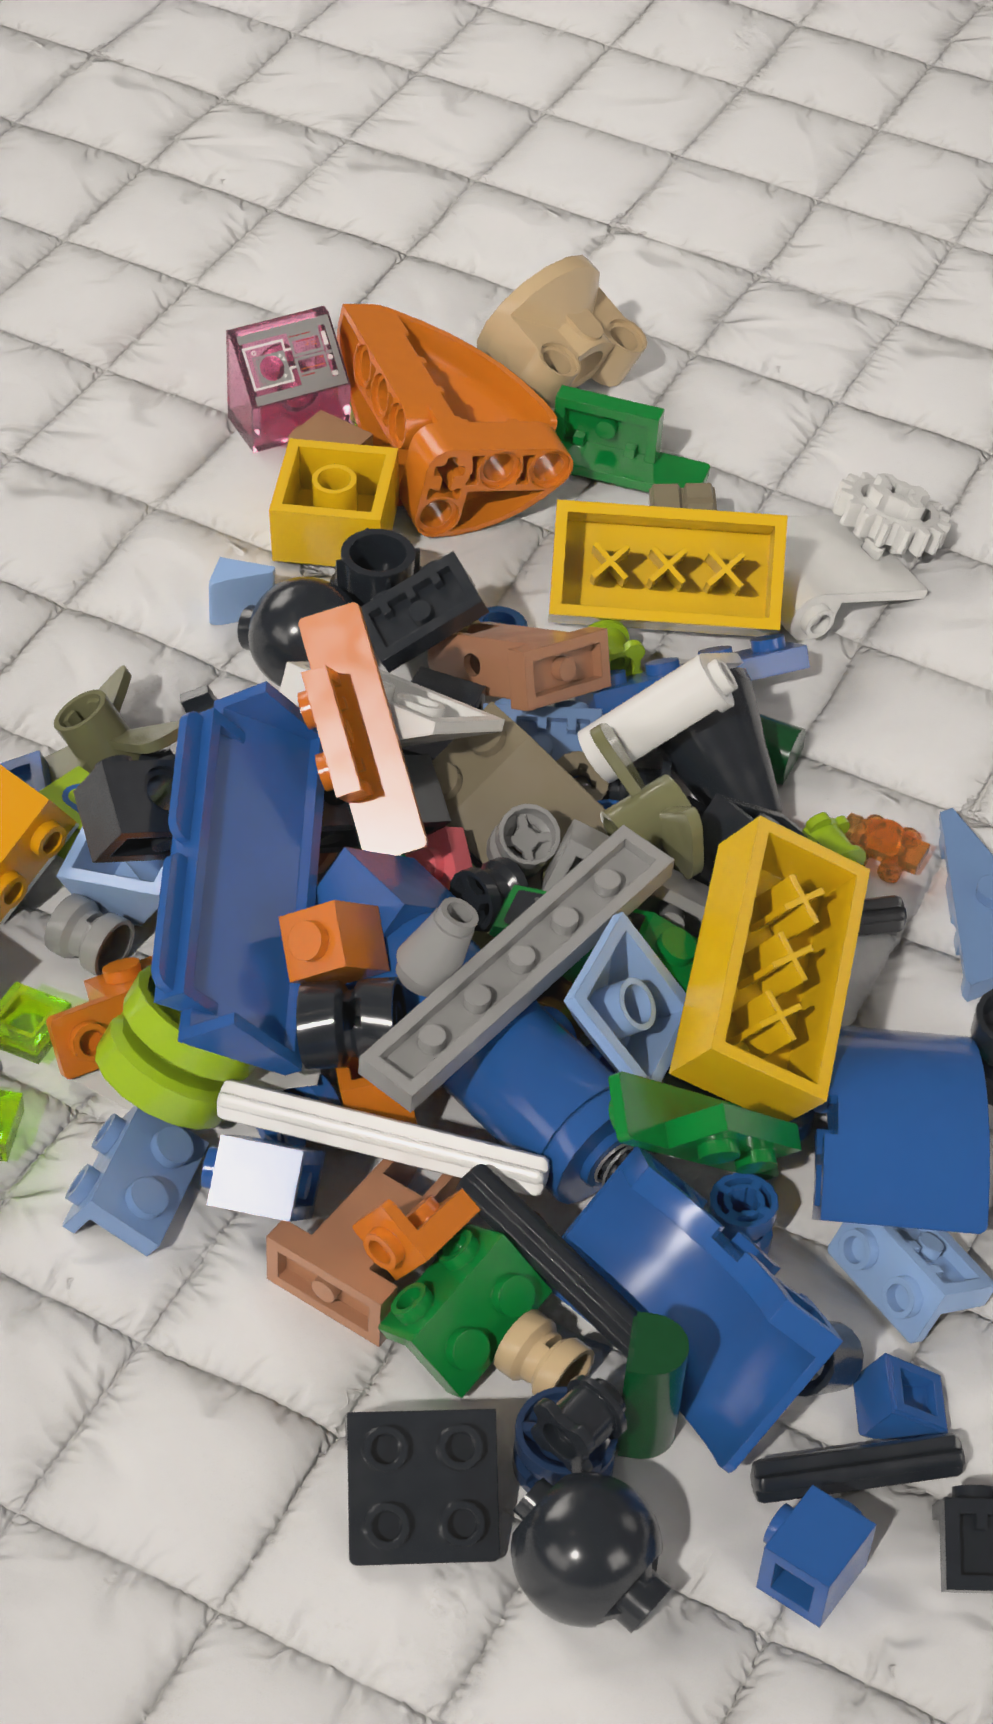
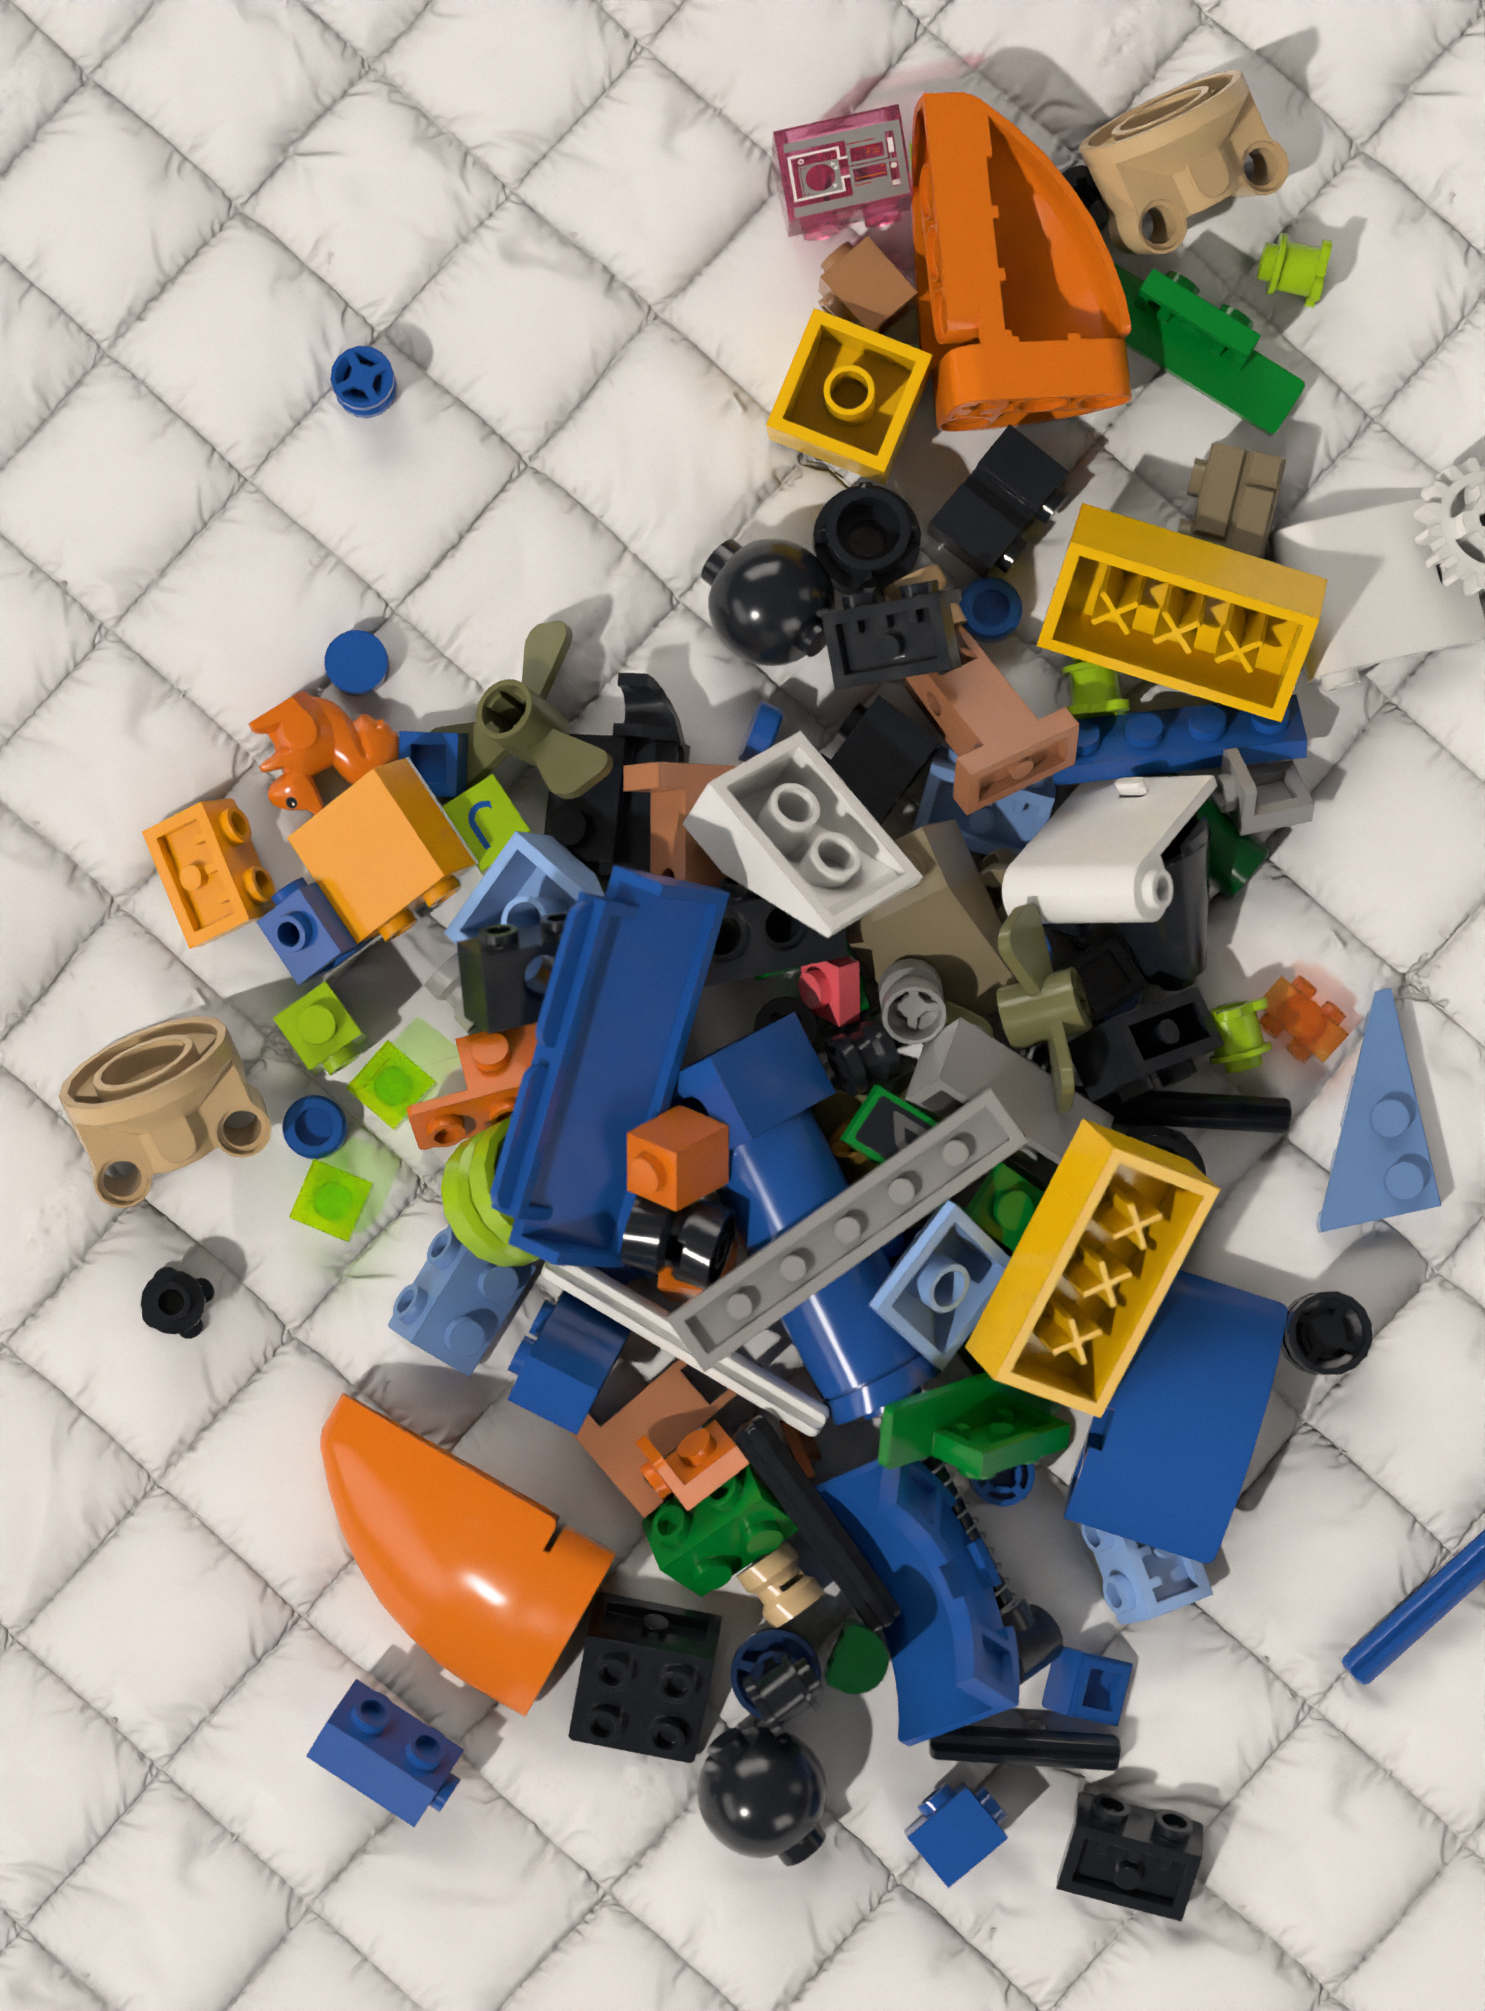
camera: 15 degrees right, 40 degrees up
(142, 1597) = (387, 1754): none -> blue brick
(190, 1387) = (458, 1554): none -> orange panel
(235, 587) = (717, 505): light blue slope -> none
(358, 732) = (751, 913): bracket -> none
(436, 947) = (764, 1211): light grey cone -> none
(494, 547) = (999, 503): none -> black brick
(678, 399) = (1294, 268): none -> lime brick
(788, 700) = (1261, 795): none -> light grey bracket

